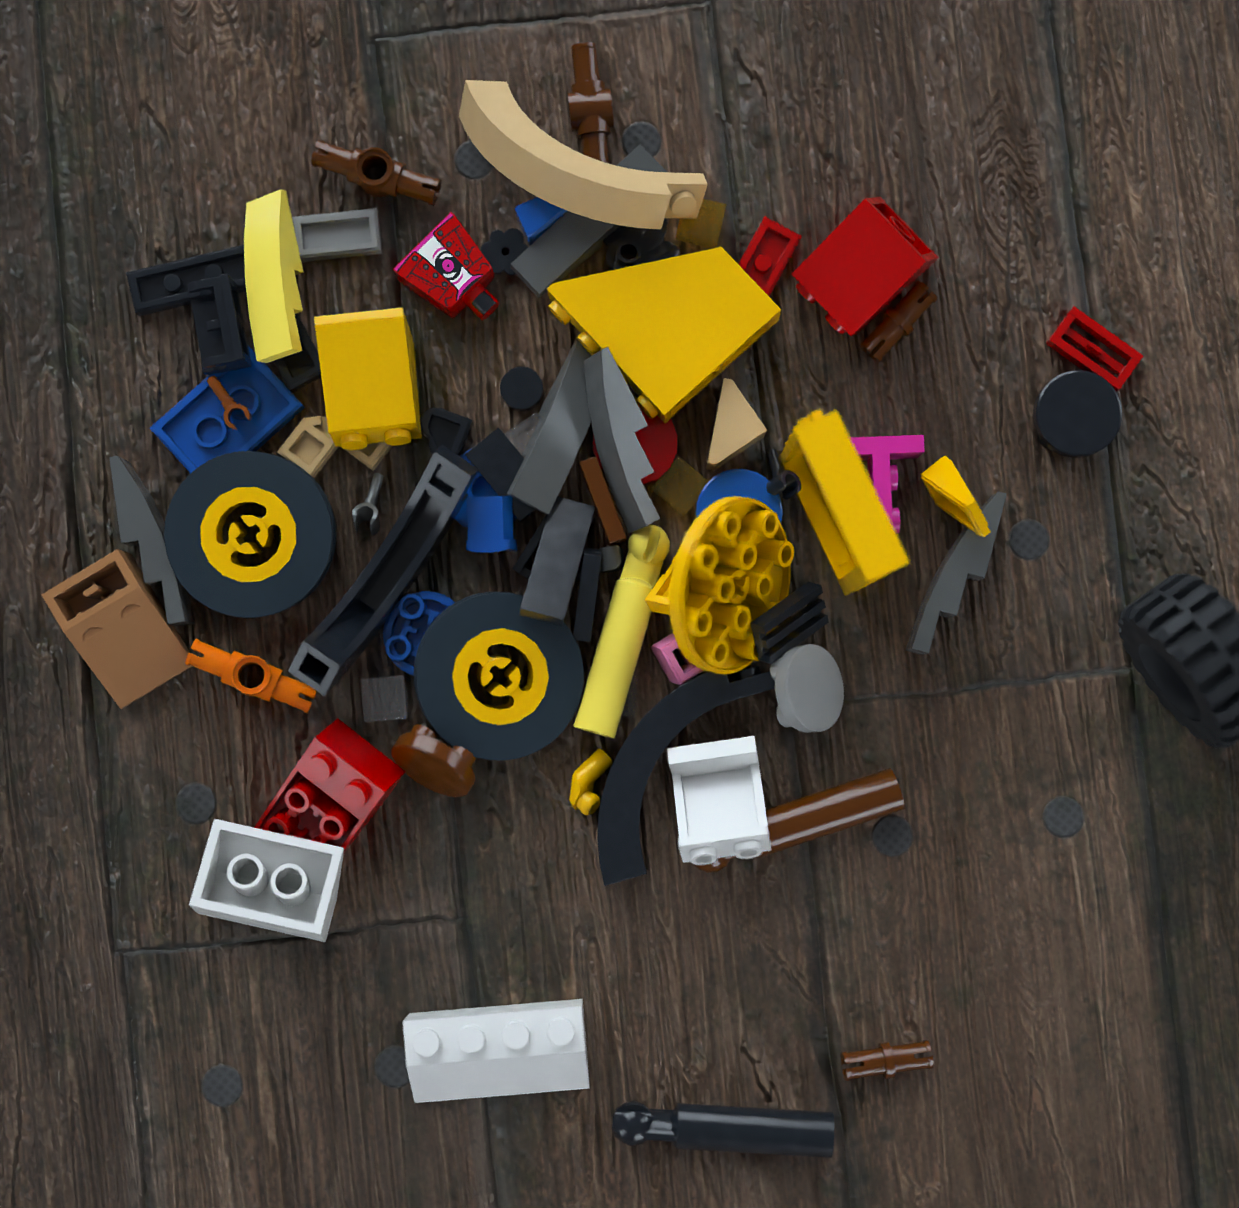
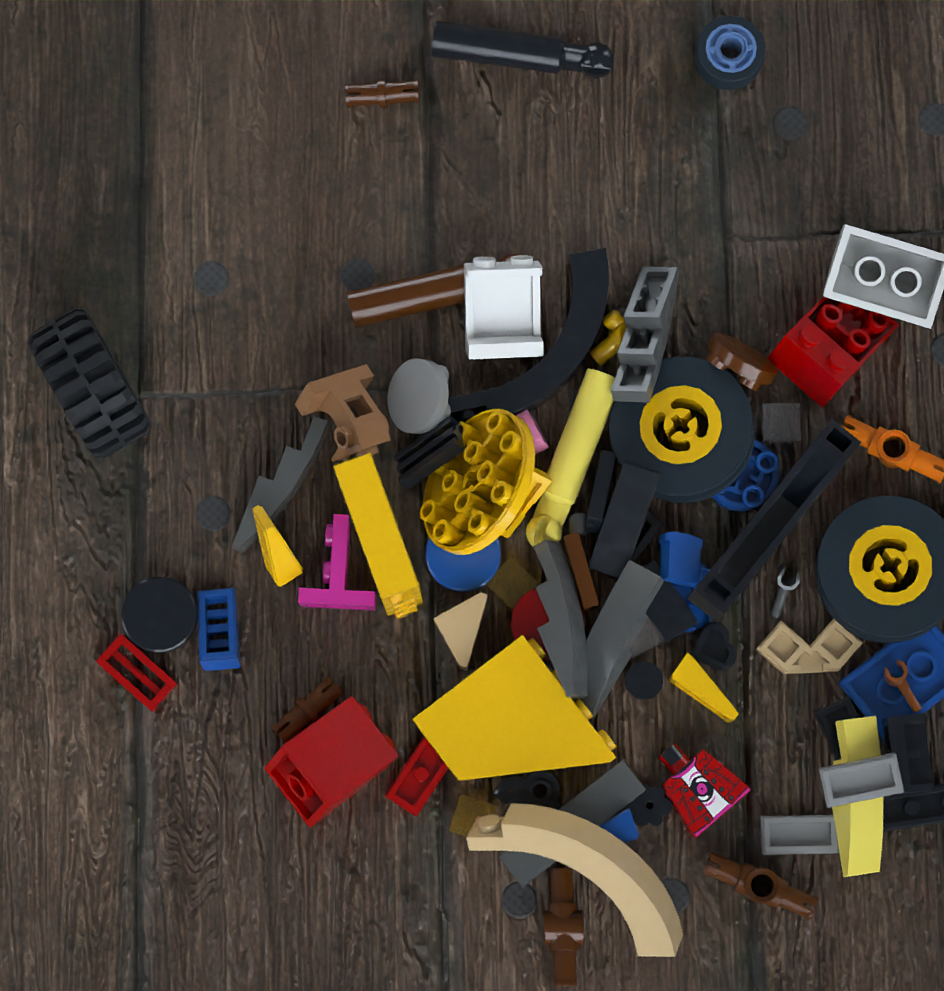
camera: 175 degrees left, 5 degrees down
(268, 282) = (861, 780): none -> light grey tile
(368, 378) = (777, 690): yellow slope -> none
(466, 390) = (697, 684): none -> yellow slope
(468, 1171) = (729, 33): none -> wheel
(496, 1050) = (704, 128): white slope -> none
(548, 785) = (646, 334): none -> dark grey slope
(782, 480) = (424, 574): black hand -> none
(910, 678) = (332, 395): none -> medium nougat tile
(993, 408) = (218, 660): none -> blue slope

